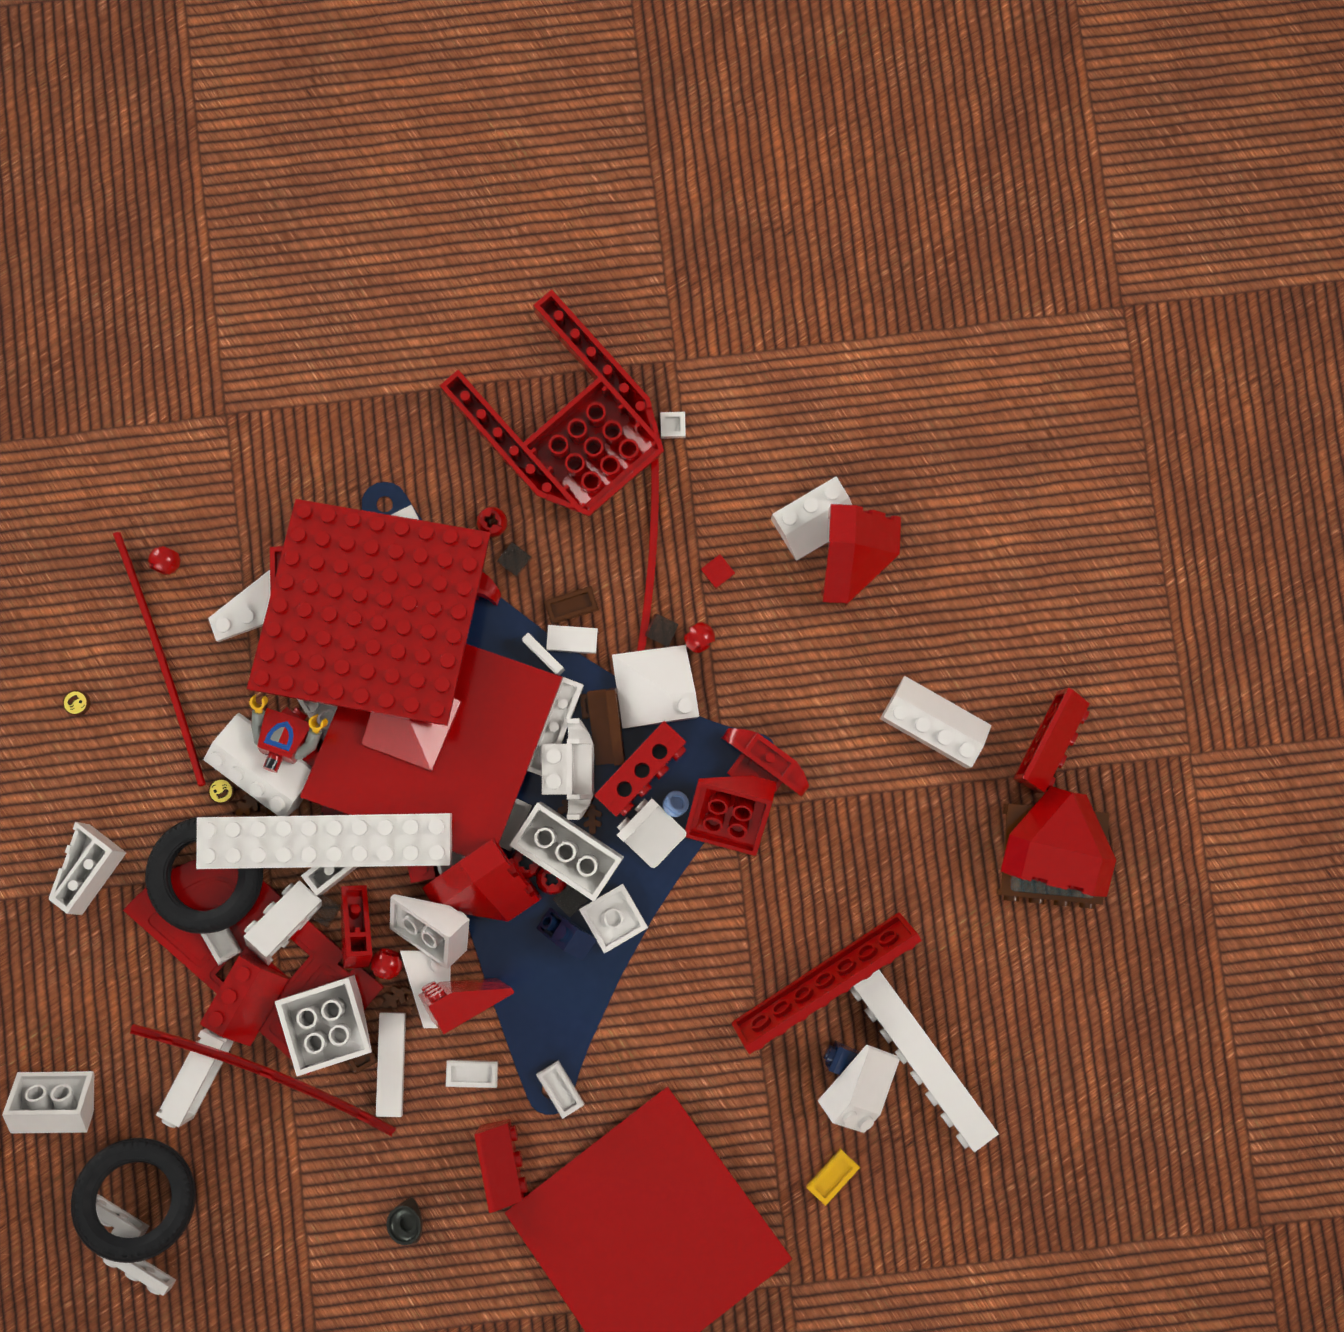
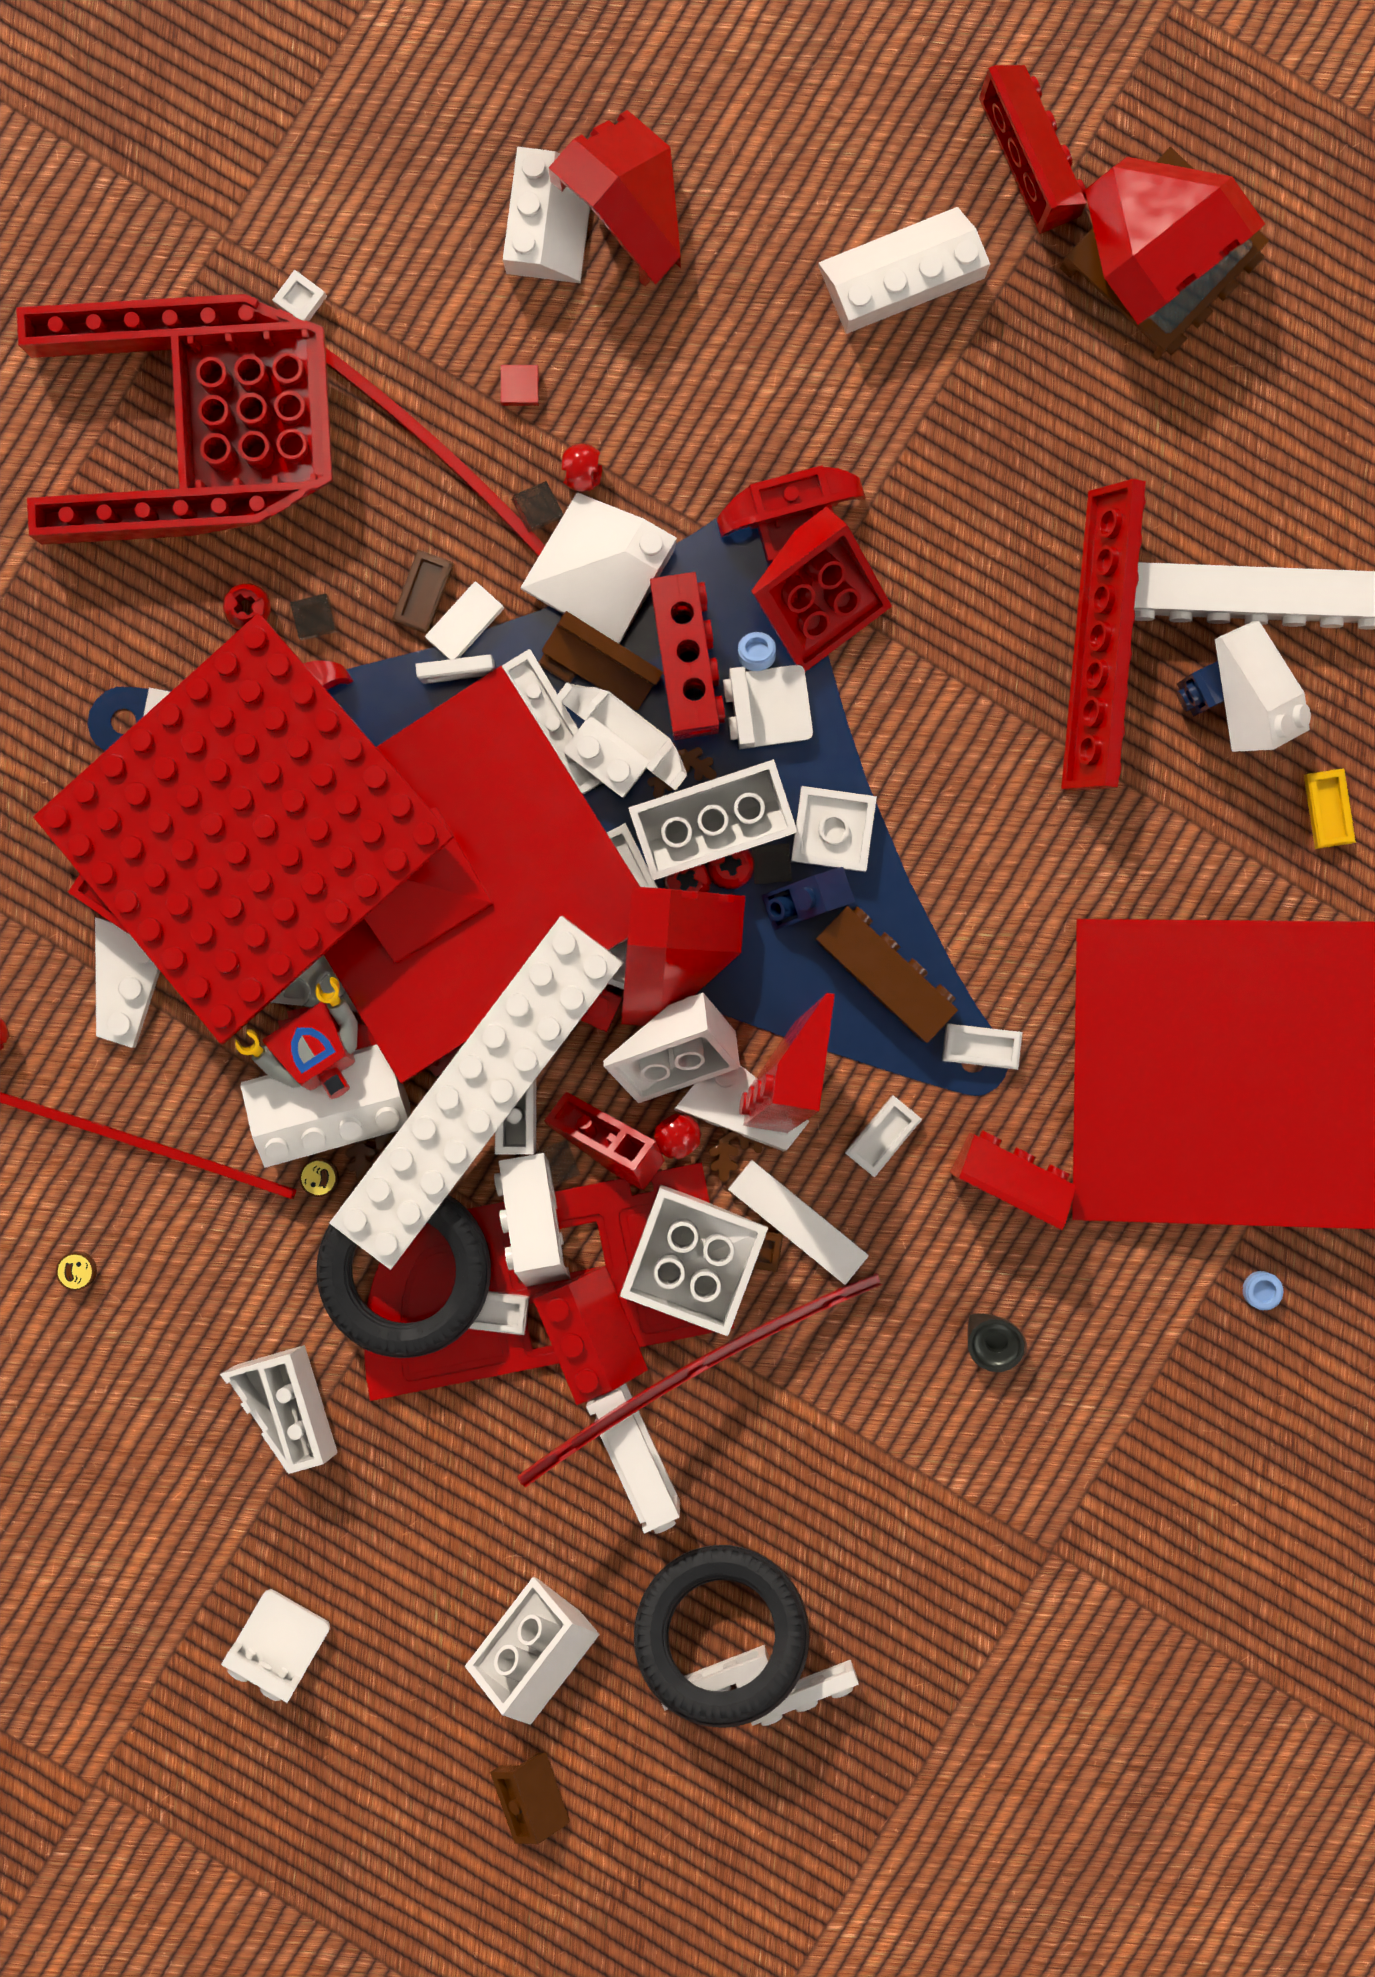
camera: 55 degrees left, 5 degrees up
(557, 1008) = (886, 974): none -> reddish brown brick

